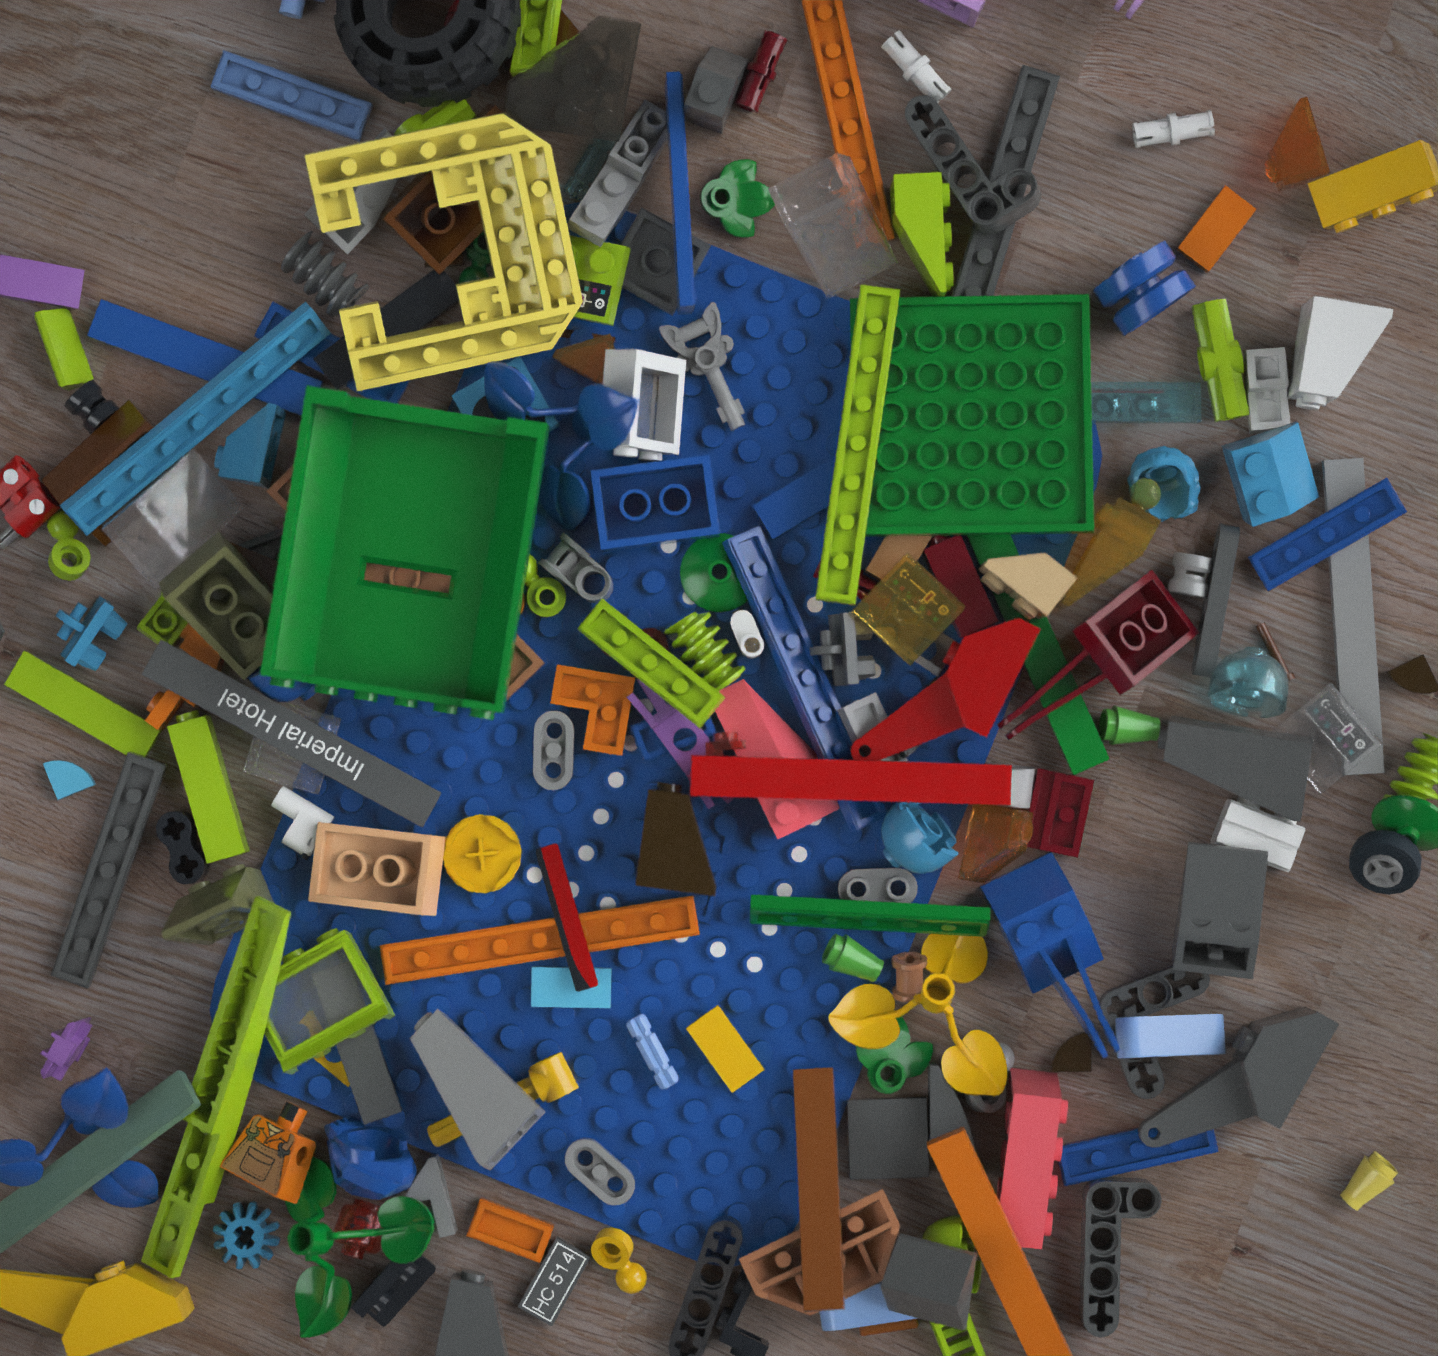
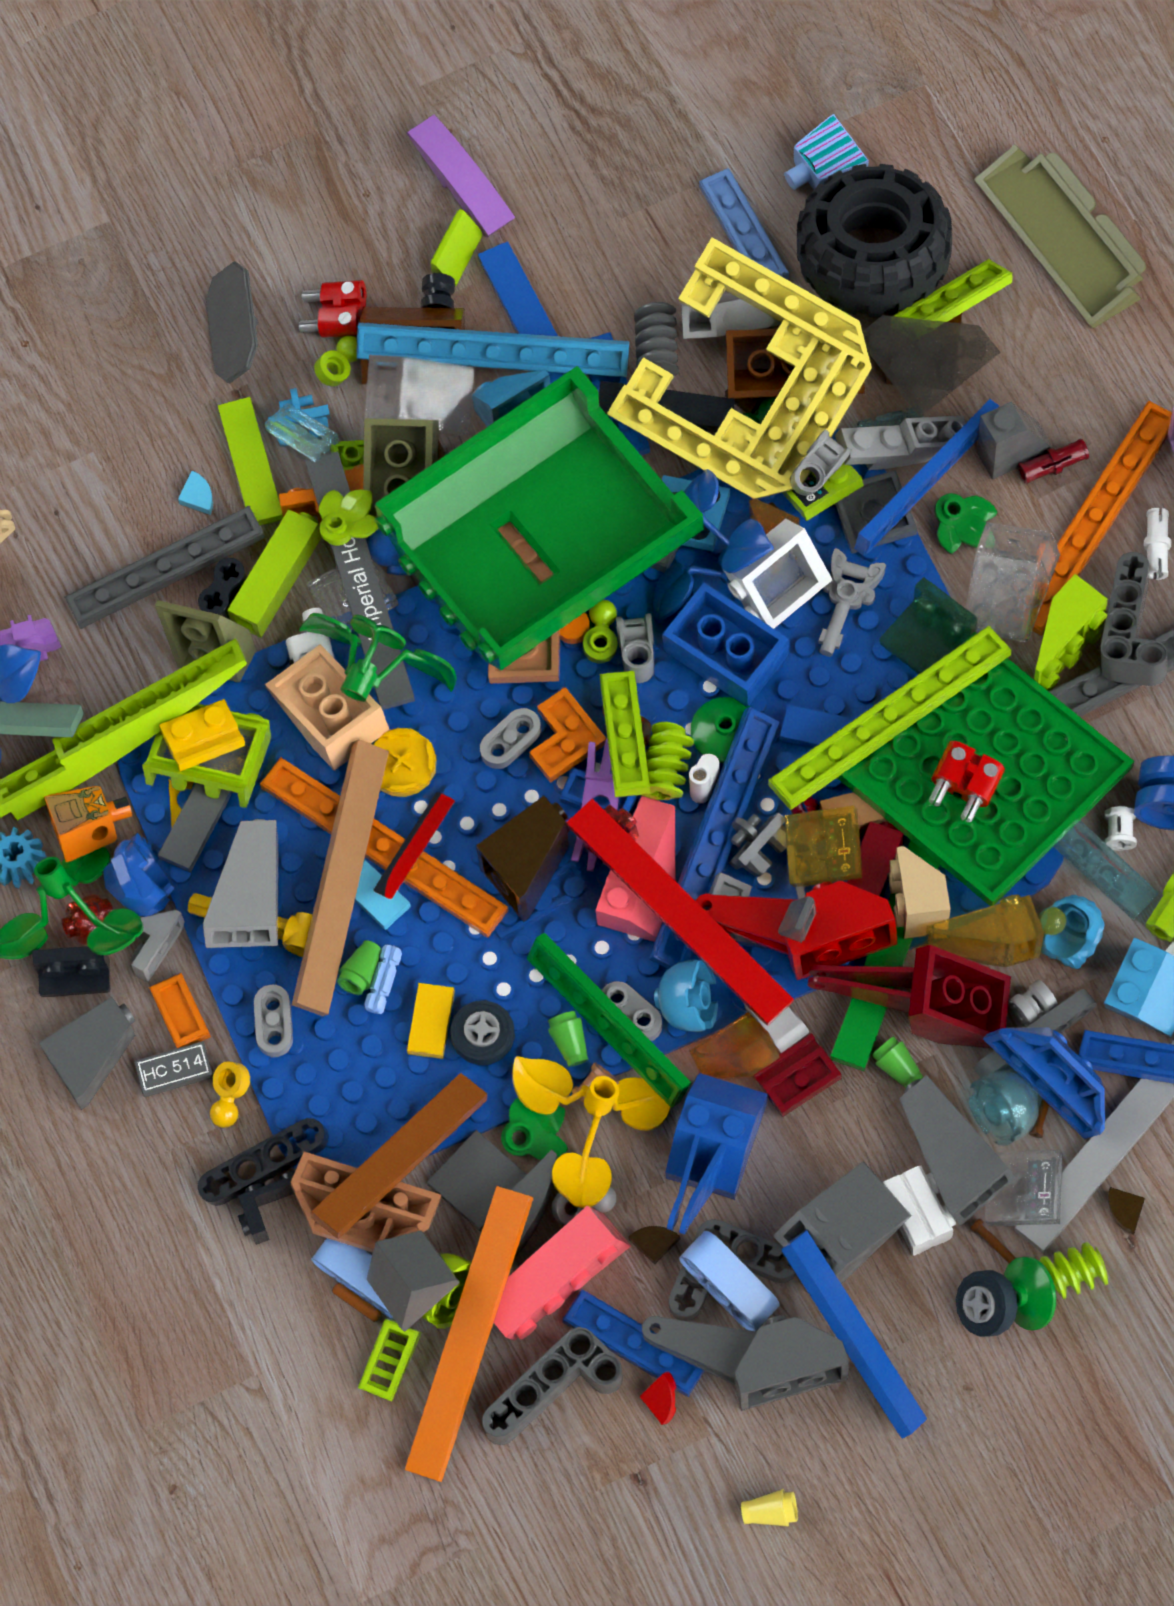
camera: 50 degrees right, 20 degrees down
(143, 649) = (297, 436): none -> clear light blue tile
(229, 687) = (348, 513): none -> lime plate
(305, 999) = (202, 735): none -> yellow plate
(390, 826) = (362, 675): none -> green plant
(538, 1005) = (340, 878): none -> medium nougat tile
(586, 270) = (823, 460): none -> light grey piece
(626, 1061) = (359, 969): none -> bright green cone
(777, 1038) = (480, 1019): none -> black wheel
(809, 332) = (928, 628): none -> clear green bracket
(963, 706) = (798, 919): none -> dark grey slope
(972, 441) = (968, 775): none -> red piece
(1107, 353) = (1120, 816): none -> white bush
(1201, 1175) = (661, 1398): none -> red tile
(1268, 623) = (1055, 1074): none -> blue wedge
(1312, 990) = (854, 1333): none -> blue tile
(1314, 799) = (992, 1240): none -> reddish brown piece

